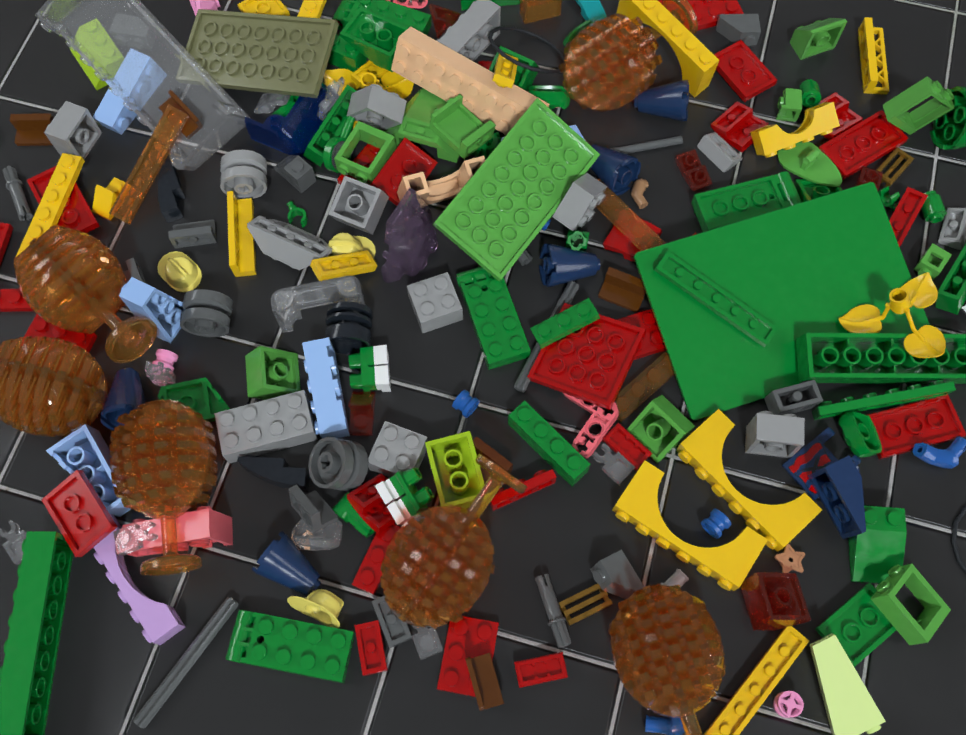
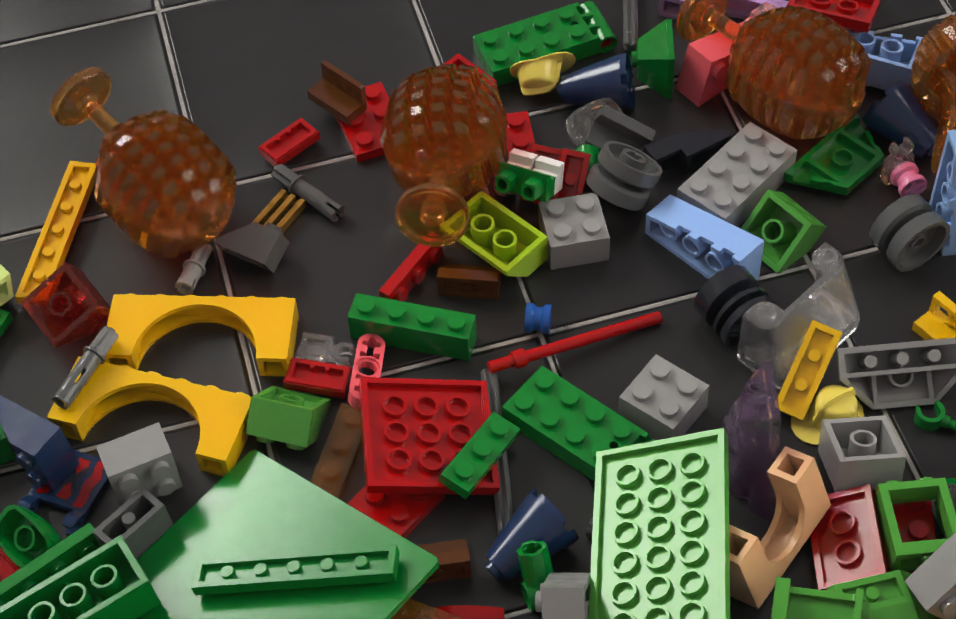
camera: 150 degrees right, 15 degrees down
(230, 561) = (656, 59): none -> green slope
(362, 413) = (651, 254): clear red slope -> none
(374, 369) = (670, 293): hips -> none
(497, 379) = (521, 358): none -> red bar
(716, 523) = (169, 352): blue wheel -> none
(776, 531) = (87, 364): none -> dark grey axle
(788, 566) = (57, 363): nougat plate -> none
(793, 704) = (17, 238): bright pink wheel -> none

